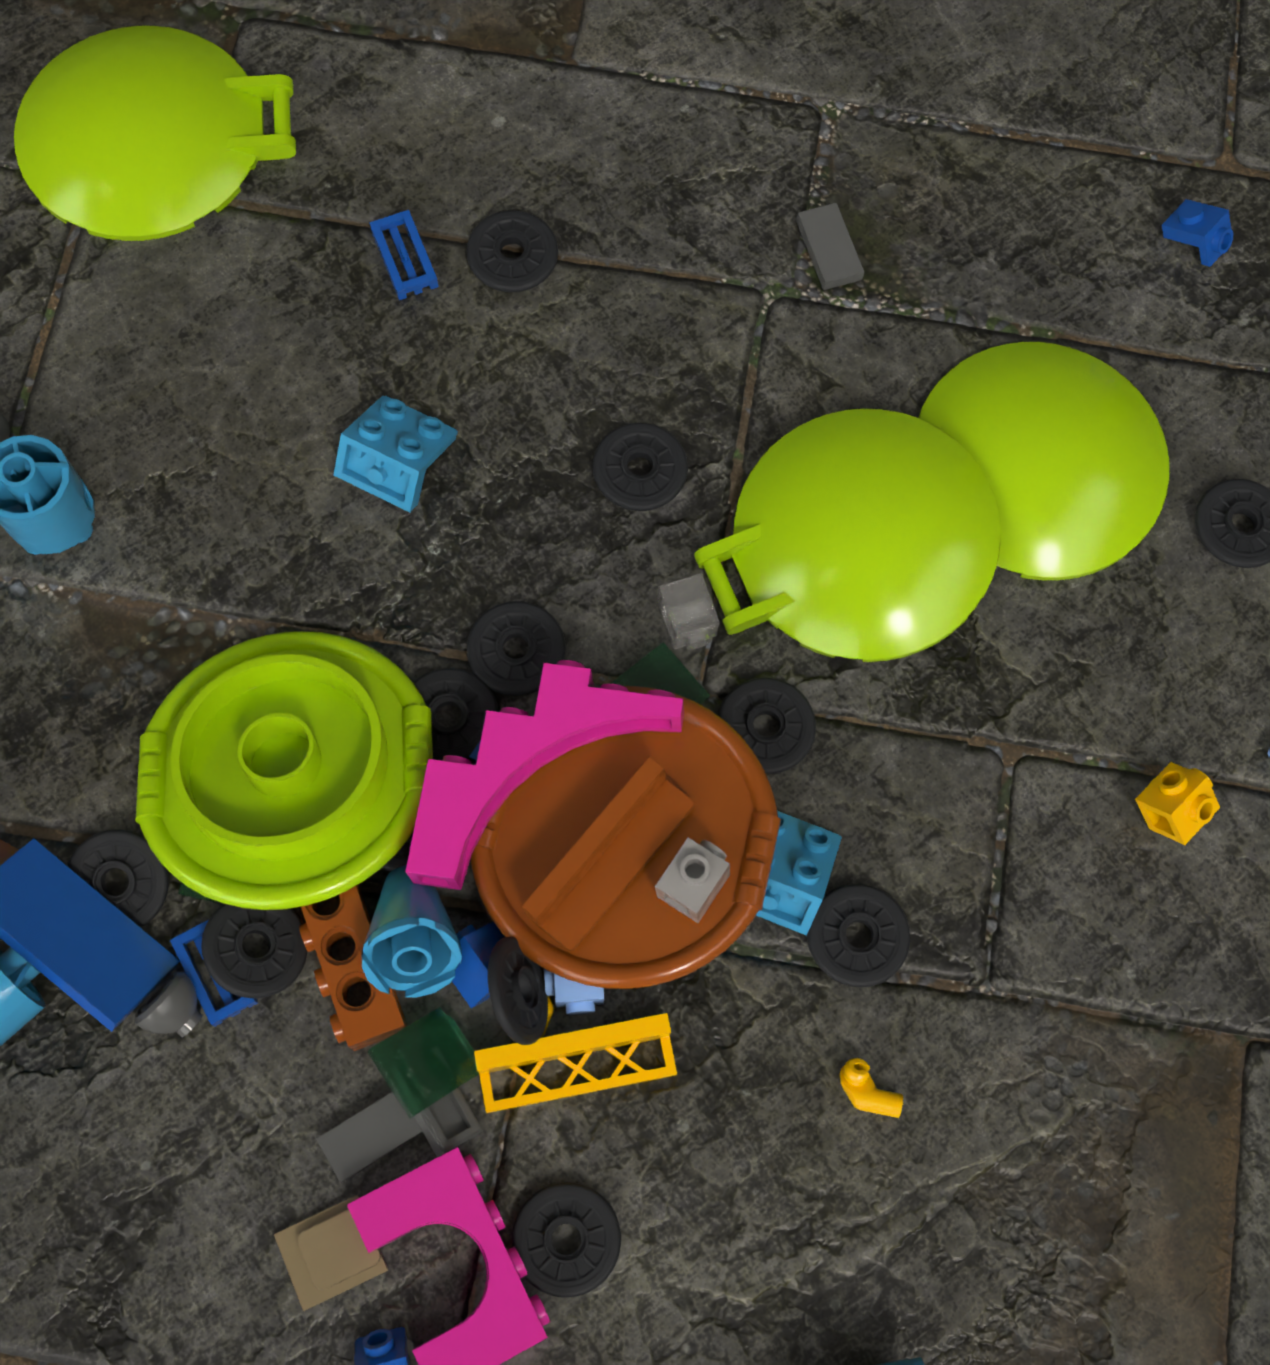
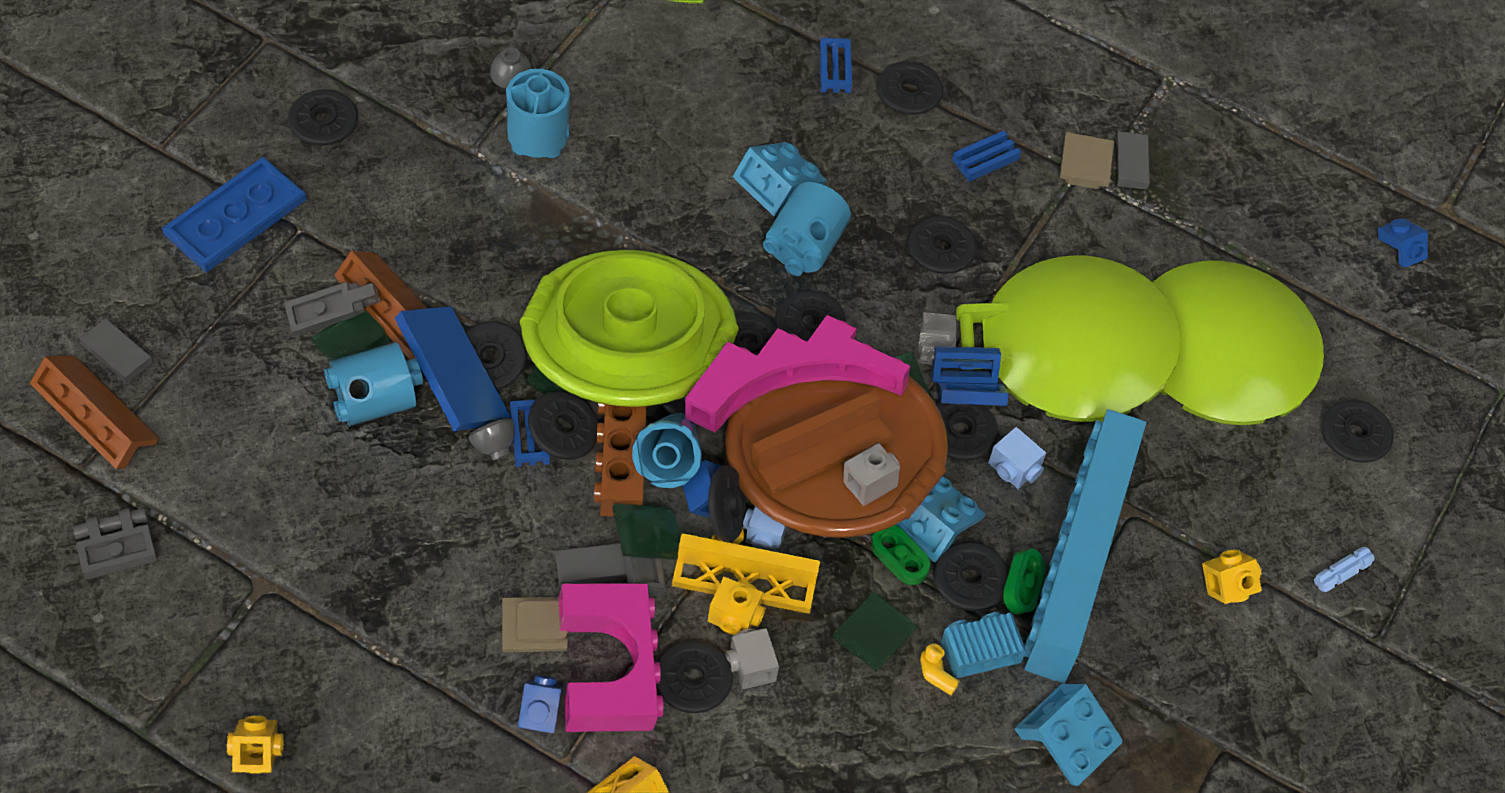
camera: 20 degrees right, 15 degrees down
(462, 520) = (807, 228): none -> dark azure cylinder
(569, 1112) = (736, 606): none -> yellow brick
(631, 1183) = (753, 658): none -> light grey brick
(666, 287) = (983, 151): none -> blue tile
(738, 631) = (962, 358): none -> blue tile
(757, 950) = (902, 555): none -> green plate
(761, 672) = (972, 393): none -> blue tile
(769, 1071) = (874, 631): none -> clear green piece
(774, 269) = (1086, 161): none -> dark tan piece
(854, 744) = (1017, 458): none -> light blue brick
(912, 1033) = (982, 644): none -> dark azure brick
(928, 918) = (1024, 581): none -> green plate
(989, 843) = (1083, 546): none -> dark azure brick
(1061, 1105) = (1072, 731): none -> dark azure bracket

